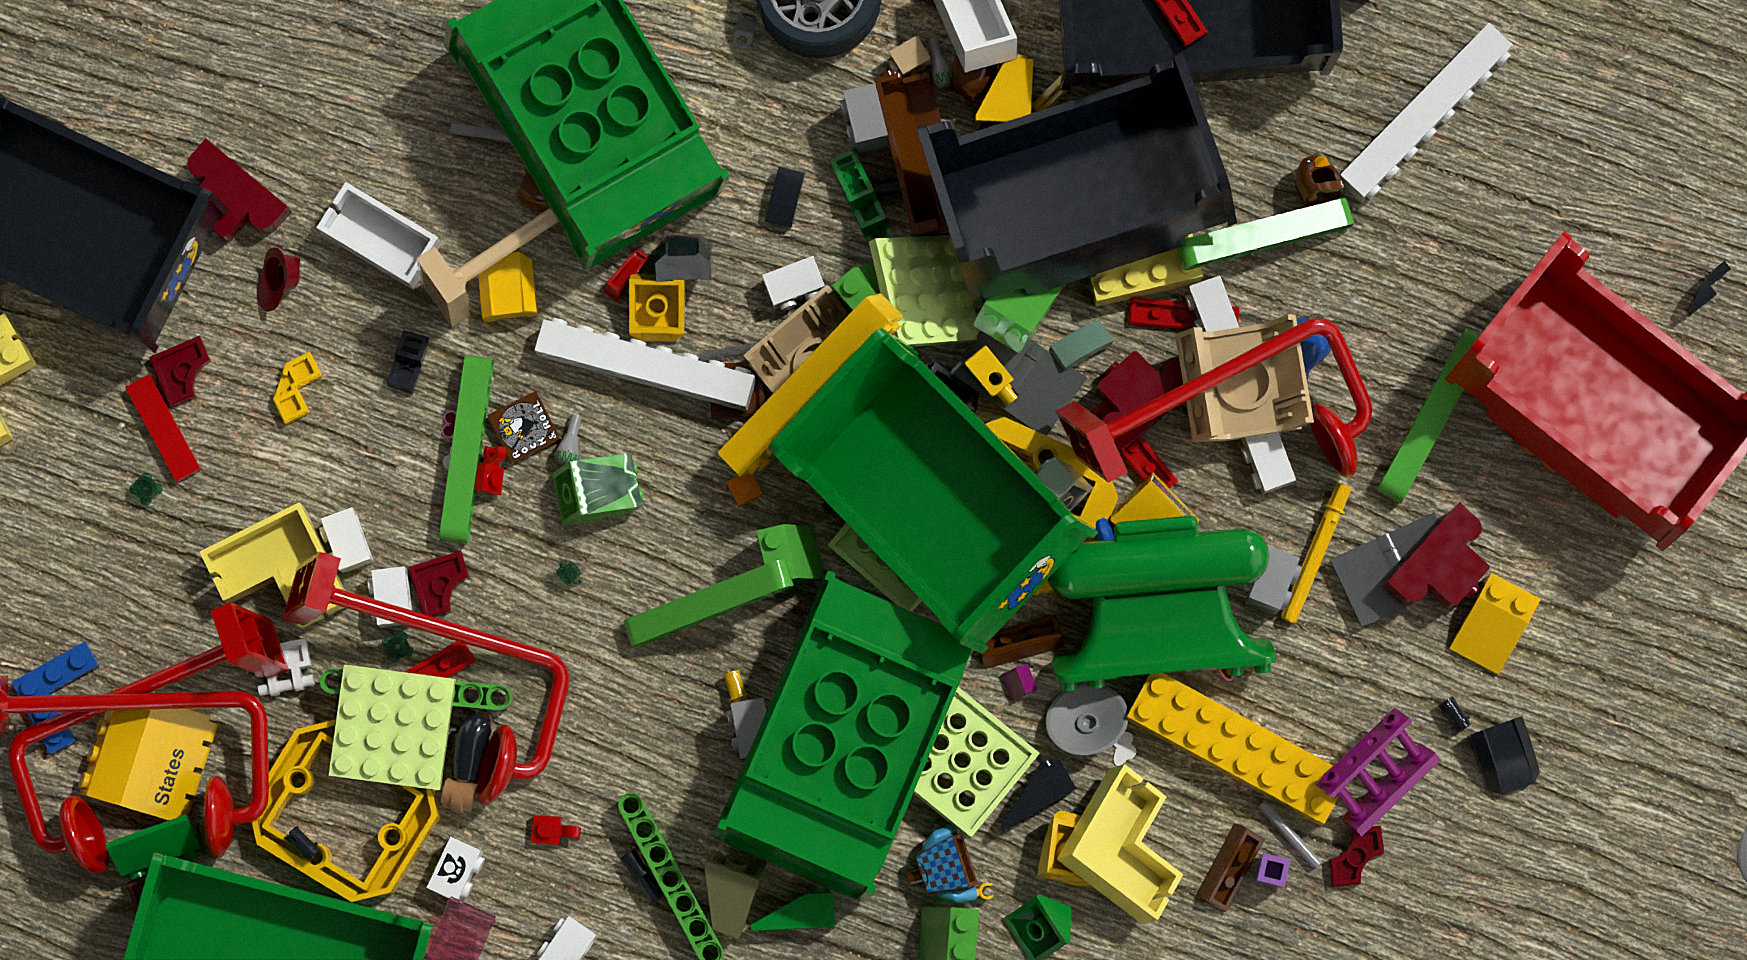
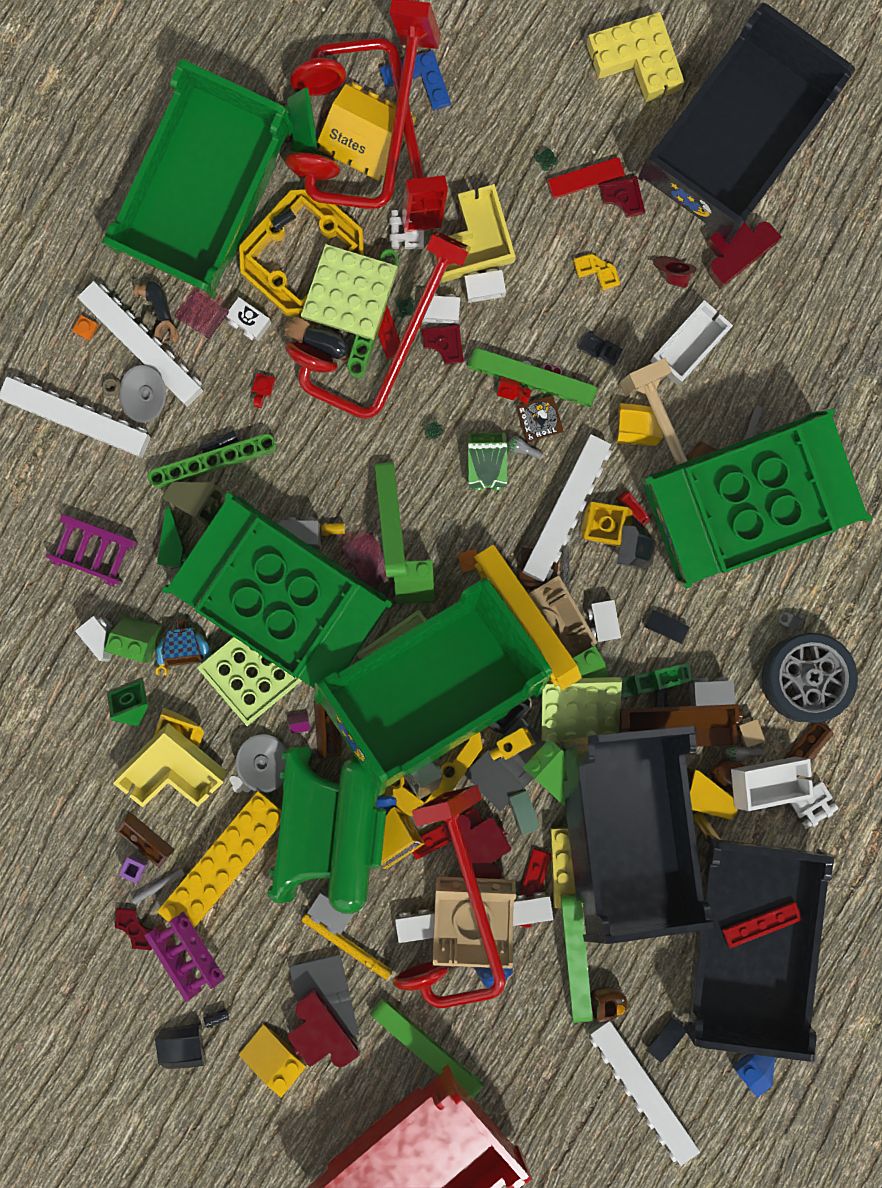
camera: 100 degrees right, 5 degrees up
(770, 629) = (367, 559): none -> clear pink piece
(1044, 789) = (221, 723): black slope -> none
(1351, 94) = (666, 1040): none -> black slope

